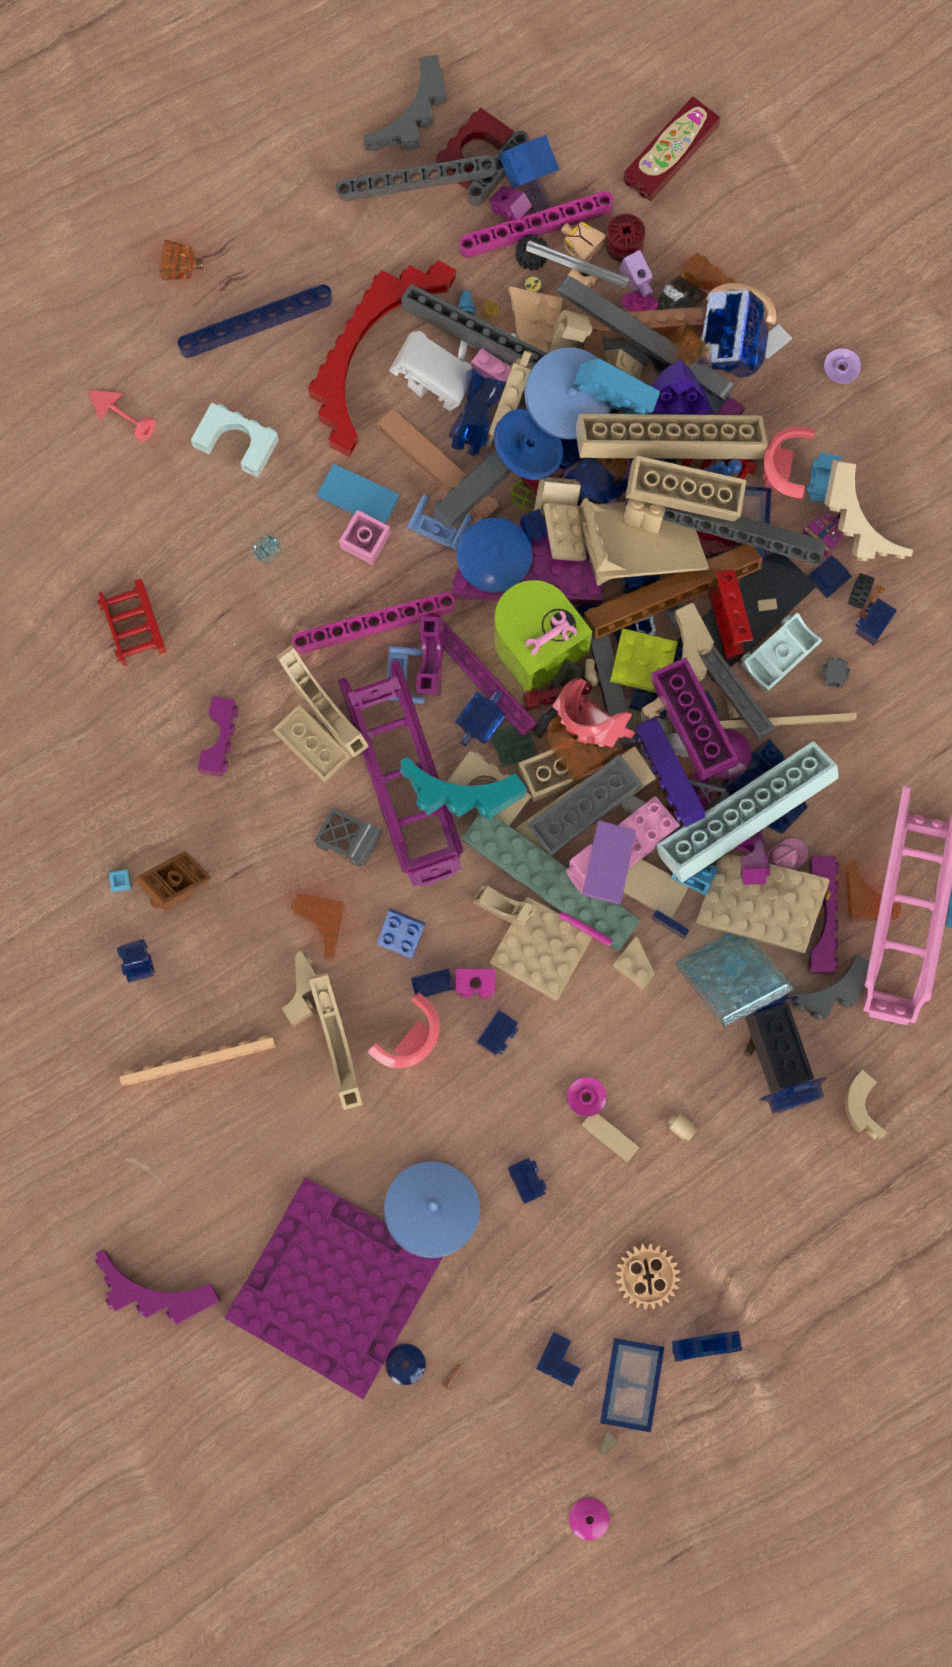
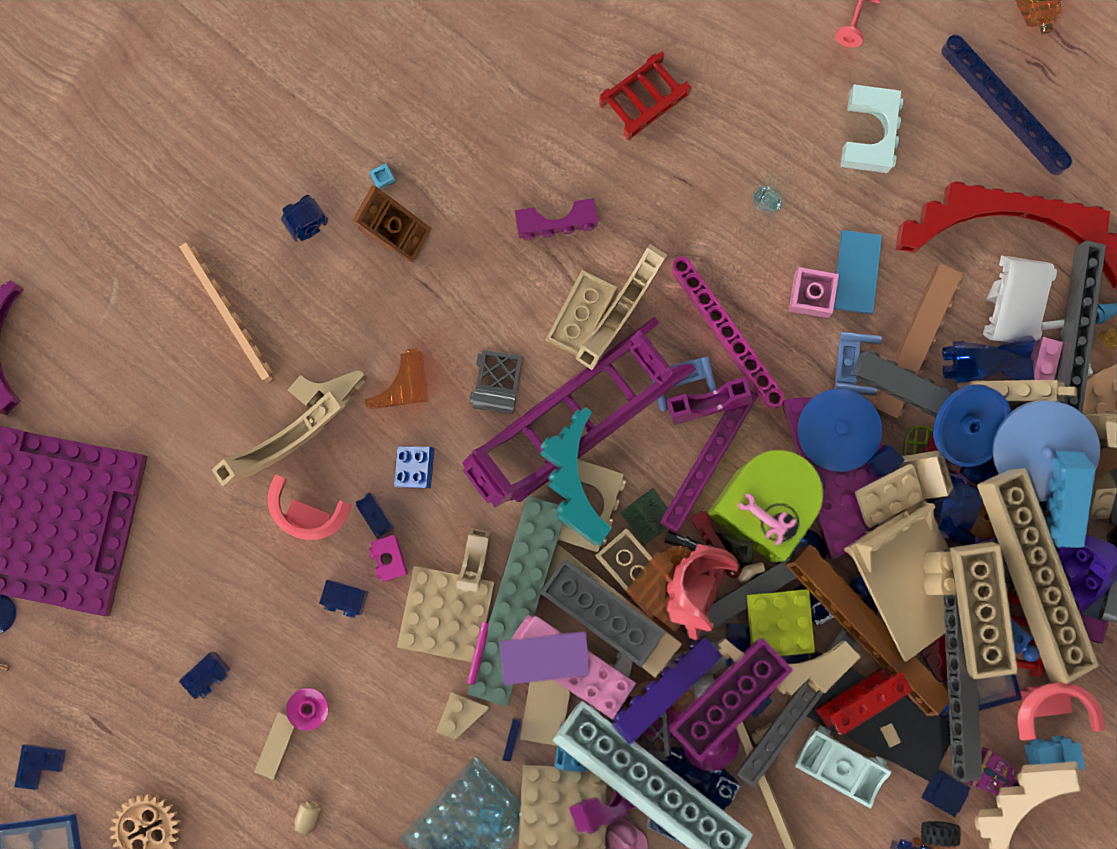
camera: 75 degrees right, 5 degrees up
(431, 1209) = (146, 590): medium blue container -> none
(480, 717) = (663, 473): clear blue plate -> none
(835, 673) = (840, 832): dark grey brick -> none

